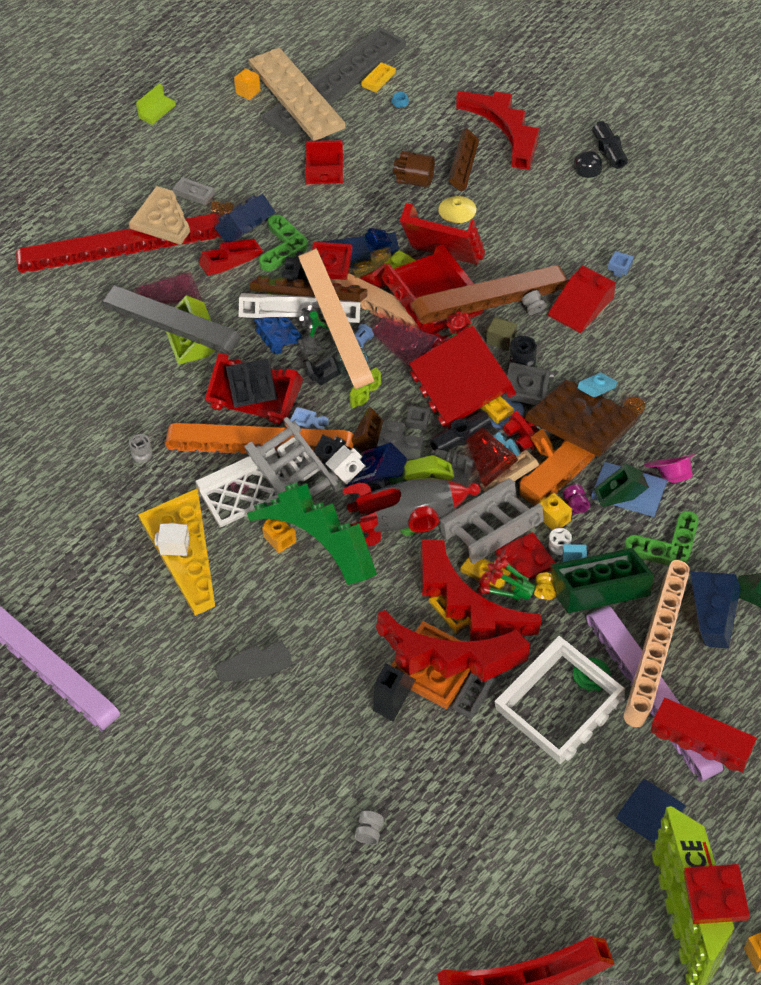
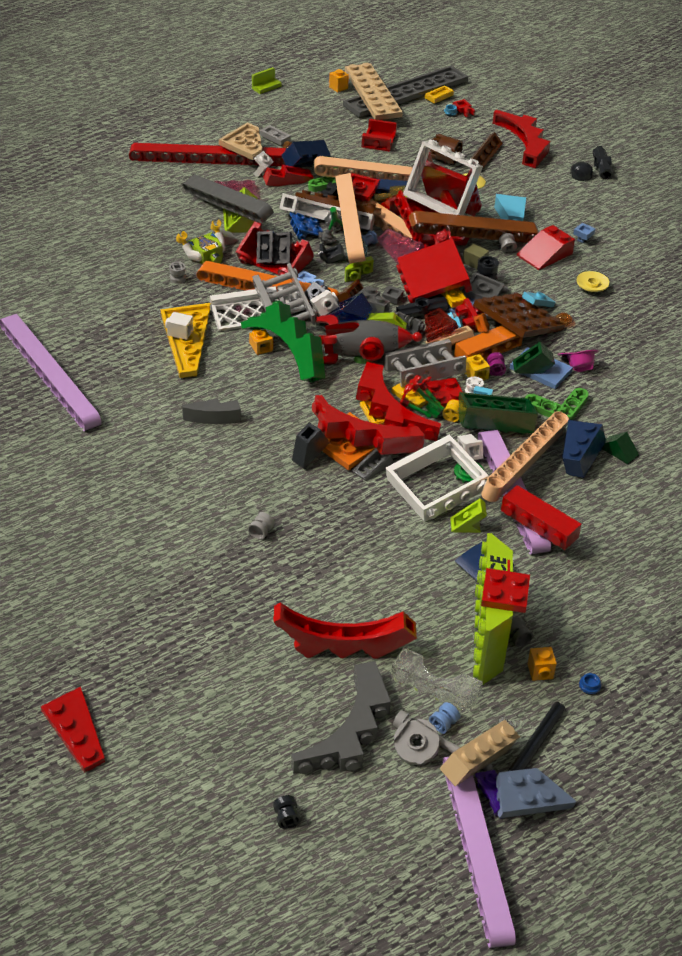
camera: 10 degrees right, 10 degrees down
(164, 399) = (206, 247): none -> torso
(182, 373) = (228, 237): none -> light grey slope
(196, 244) = (264, 162): none -> white bracket
(323, 228) = (358, 167): none -> light nougat beam
(376, 239) = (399, 180): clear blue slope -> none
(415, 91) = (464, 107): none -> red plate
(429, 270) = (410, 189): none -> white window
(522, 247) = (510, 207): none -> medium azure slope
(584, 639) = (471, 446): none -> white brick
(614, 750) = (469, 518): none -> lime slope
(652, 339) = (592, 281): none -> light yellow dish

